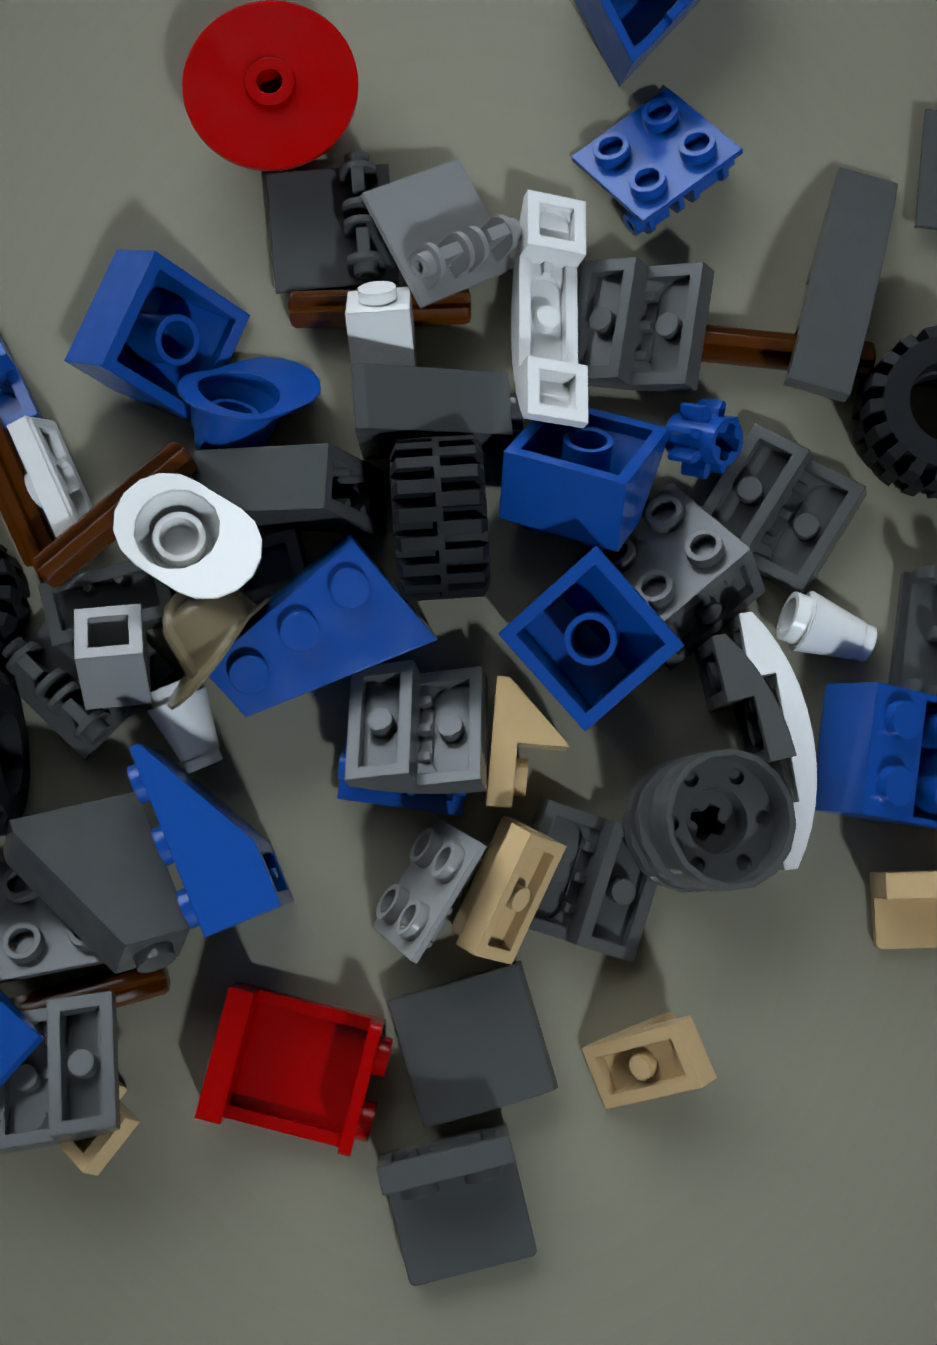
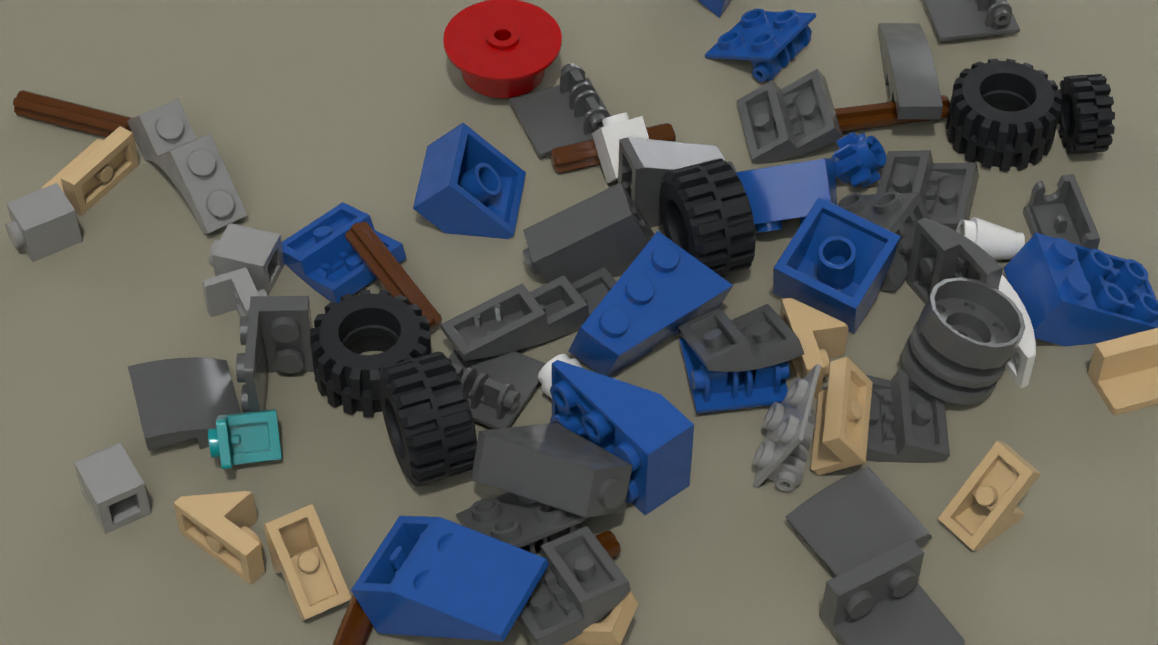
camera: 15 degrees left, 35 degrees down
(50, 472) = (429, 273): white plate -> none
(95, 528) = (482, 270): reddish brown axle -> none
(112, 656) = (513, 343): light grey brick -> none
(187, 536) = (543, 257): white piece -> none
(202, 634) = (571, 305): dark tan piece -> none
(245, 400) = (533, 206): blue piece -> none
(294, 1067) = (736, 575): red panel -> none
(441, 232) = (641, 96): light grey hinge -> none
(545, 311) = (714, 106): white slope -> none

